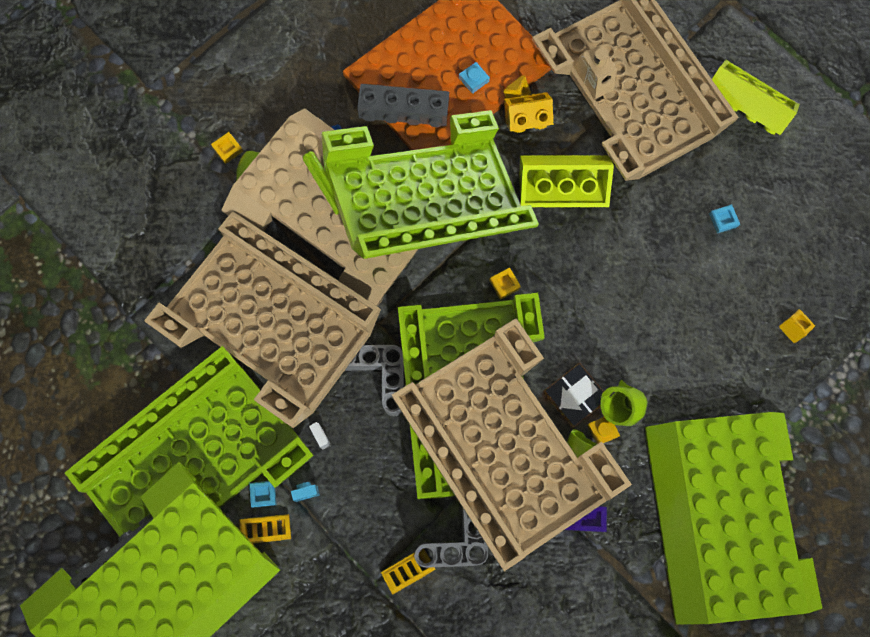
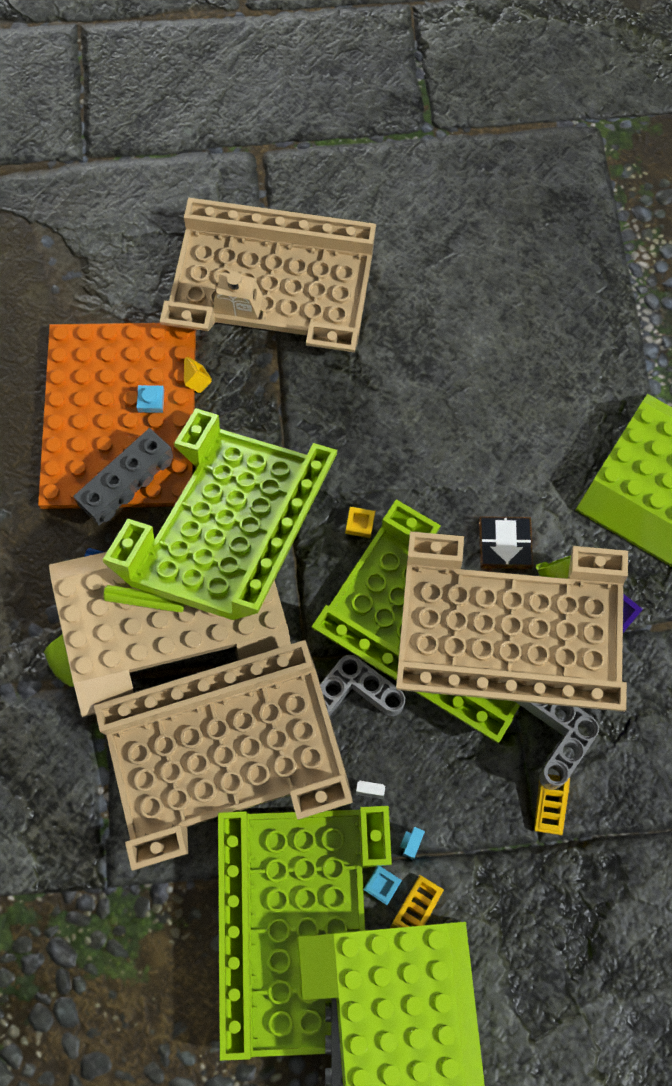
camera: 50 degrees left, 5 degrees down
(227, 147) = (19, 666): yellow plate -> none
(529, 112) = (222, 379): yellow brick -> none
(565, 180) = (310, 400): neon yellow slope -> none
(603, 430) = (553, 544): yellow plate -> none
(624, 406) = (547, 509): lime piece -> none
(724, 218) = (448, 306): medium azure tile -> none
(755, 98) = (367, 199): neon yellow slope -> none
(797, 326) = (583, 326): yellow slope -> none

